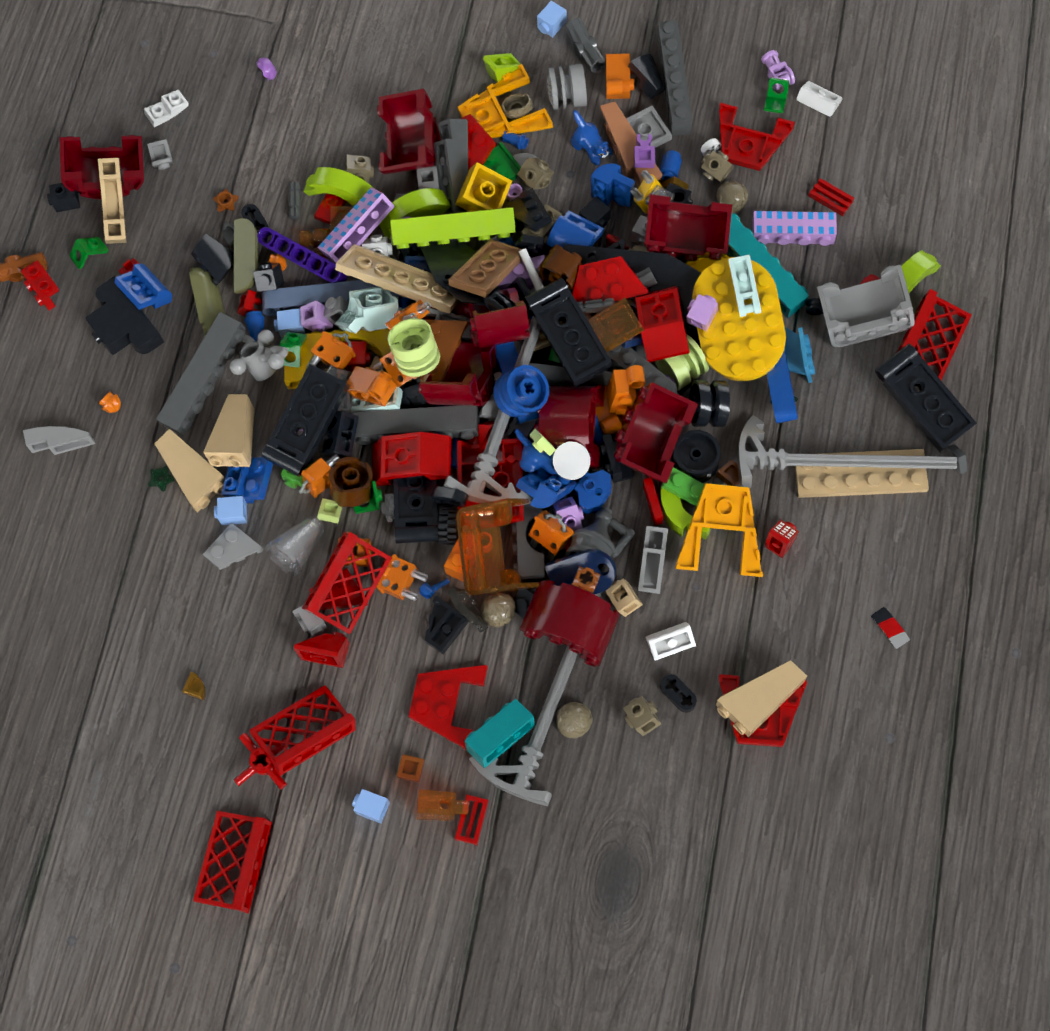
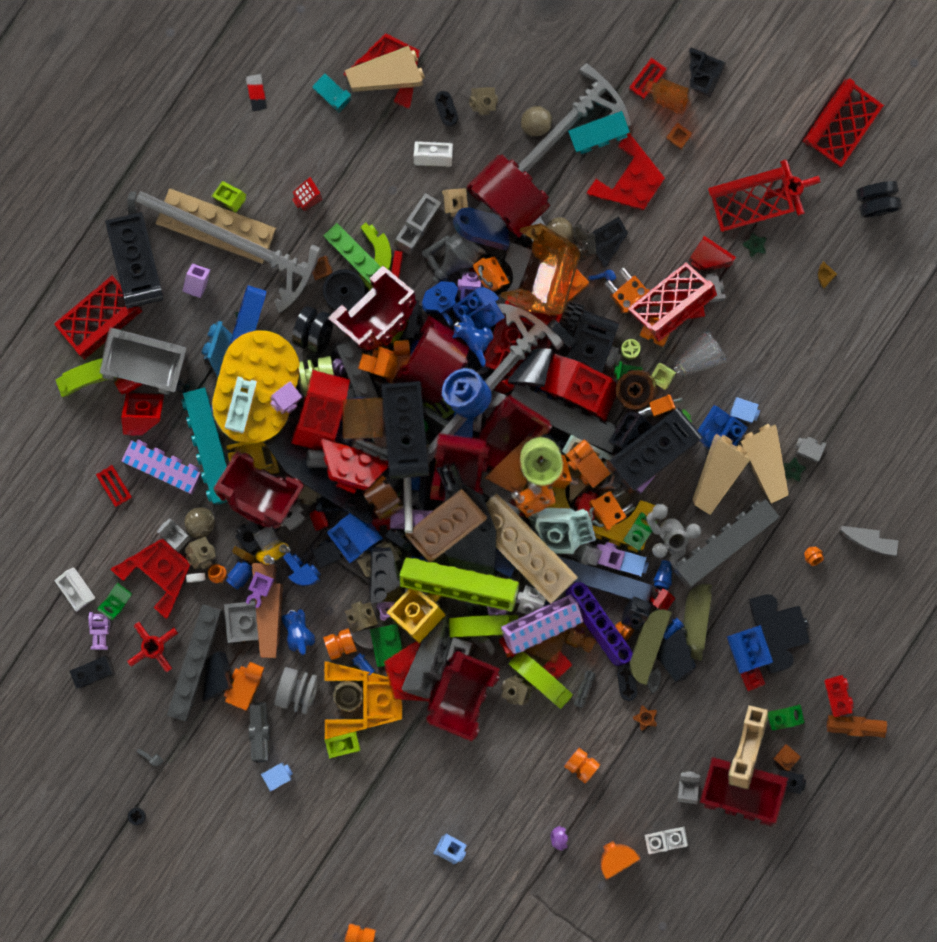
camera: 155 degrees left, 15 degrees up
(75, 218) = (786, 757): none -> dark orange plate
(148, 501) = (809, 448): none -> light grey brick
(159, 784) = (879, 199): none -> black wheel
(203, 68) = (616, 858): none -> orange brick
(225, 288) = (673, 627): none -> blue pin
(231, 547) = (755, 380): light grey wing -> none
(267, 133) = (582, 765): none -> orange wheel
(287, 692) = (760, 245): none -> clear green plate
(369, 17) = (449, 842): none -> light blue brick
(370, 805) = (721, 119): light blue brick -> none
(375, 520) = (633, 344): none -> yellowish green wheel
(410, 853) = (704, 72): none -> black slope
(463, 447) = (533, 369): none -> black slope
(541, 443) = (468, 342): yellowish green plate -> none
(547, 142) = (340, 644): none -> orange wheel
(571, 460) = (450, 320): white sticker -> none
(586, 579) = (484, 206): dark orange piece -> none
(692, 158) = (217, 573): none -> orange plate
(720, 75) = (158, 654): none -> red bar
(722, 509) = (345, 232): light orange wing -> none
(750, 175) = (174, 534): none -> light grey bracket
(765, 34) = (92, 672): none -> black brick
(809, 657) = (332, 93): none -> teal bracket
(841, 264) = (141, 412): none -> red slope
(852, 407) = (196, 280): none -> lavender brick
(861, 505) = (229, 196): none -> lime slope

